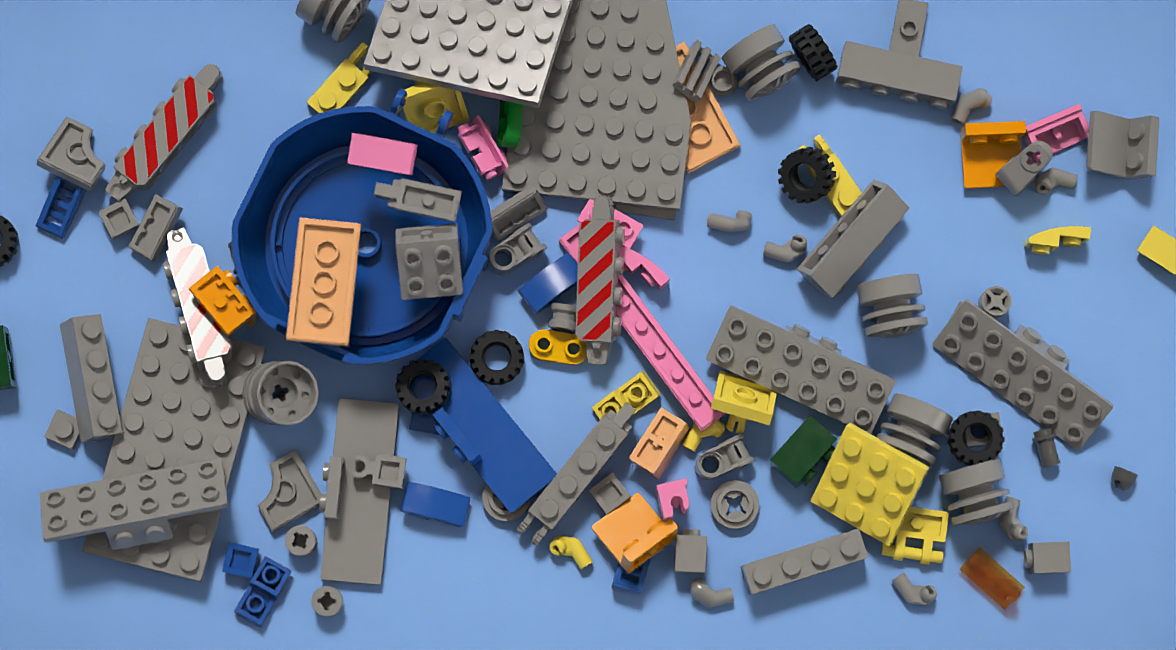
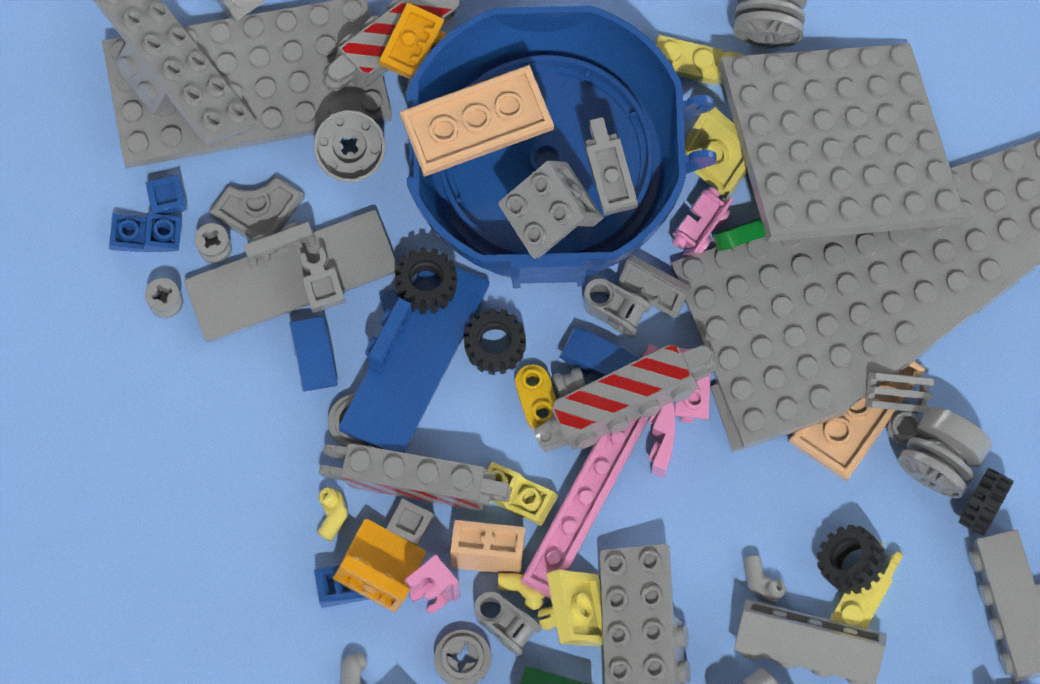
camera: 75 degrees right, 10 degrees down
(382, 154) = (635, 110): bright pink slope -> none
(690, 552) = (388, 635): light grey brick -> none
(730, 224) = (757, 509): light grey arm -> none

